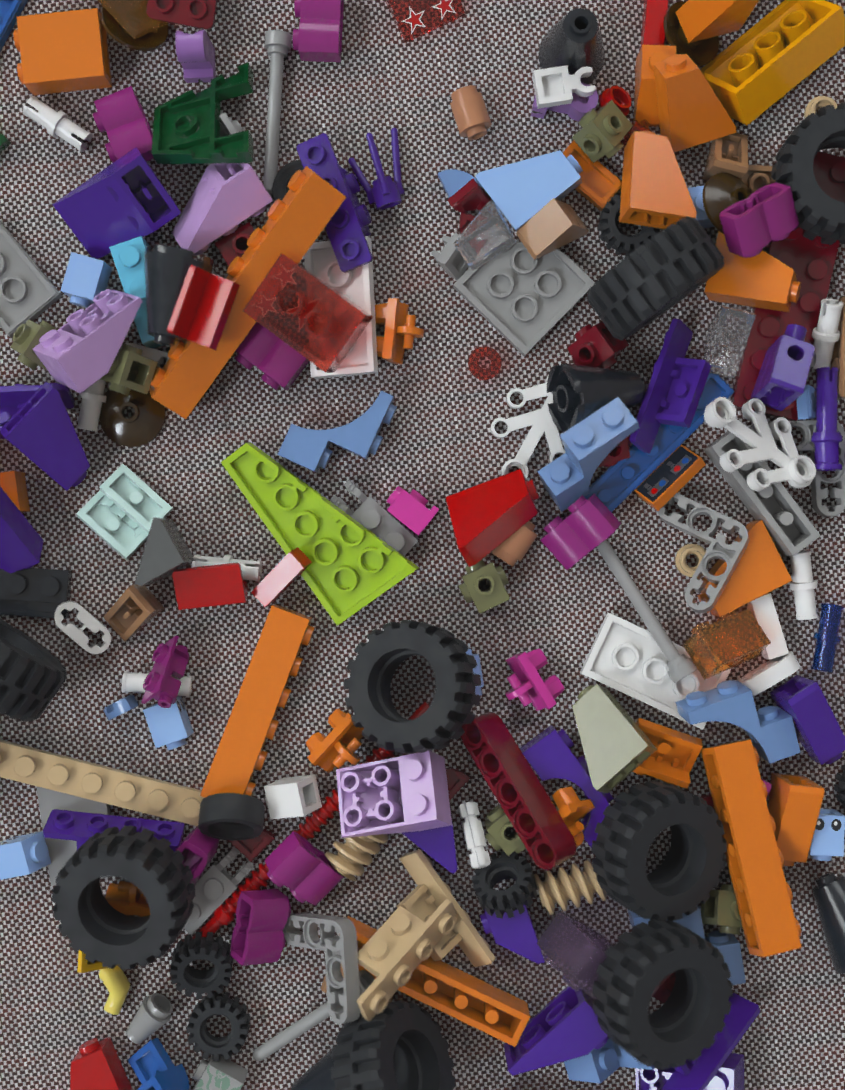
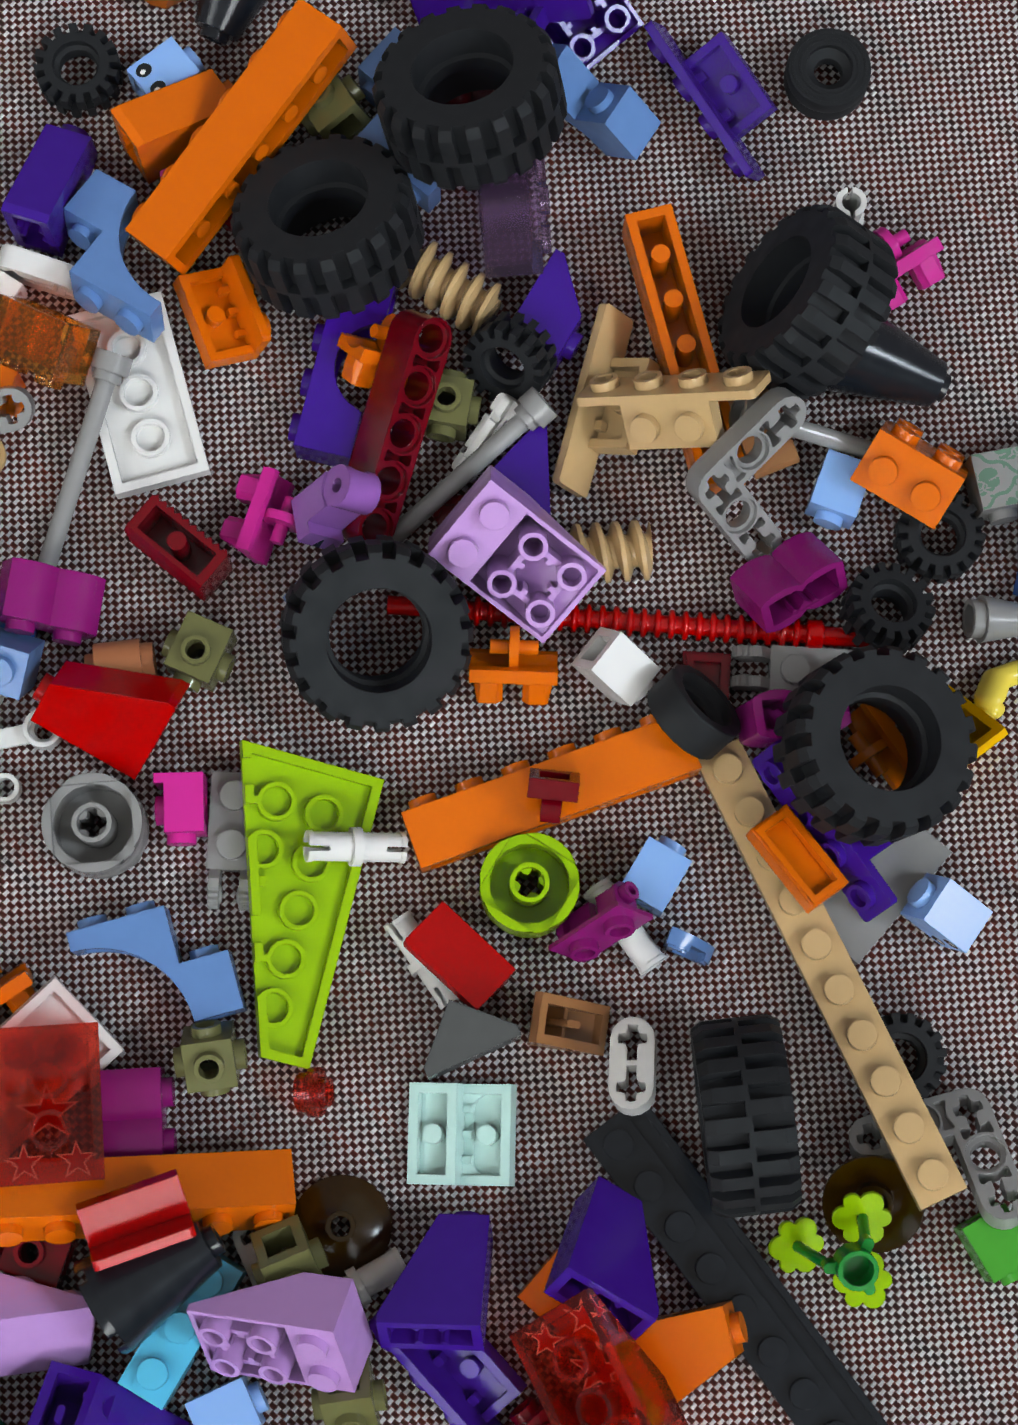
camera: 135 degrees left, 10 degrees down
(109, 803) = (797, 858): none -> orange tile
(207, 454) = (313, 1092): none -> clear red plate
(209, 671) = (521, 857): none -> lime brick
(250, 708) = (553, 788): none -> dark red tile
(259, 1044) = (911, 471): none -> orange bracket
(267, 417) = (214, 1042): none -> olive brick
(281, 577) = (381, 887): piece -> none
(287, 995) = (834, 496): none -> light blue brick
(302, 869) = (685, 587): magenta brick -> none
(311, 581) = (355, 846): none -> white pin
(433, 438) = (74, 808): none -> light grey brick
(463, 869) = (530, 414): none -> light grey piece
(503, 723) = (333, 504): none -> medium lavender leg
(550, 622) = (179, 547): none -> dark red brick
(557, 1033) = (614, 173): dark purple slope -> none
(609, 738) = (251, 380): slope -> none

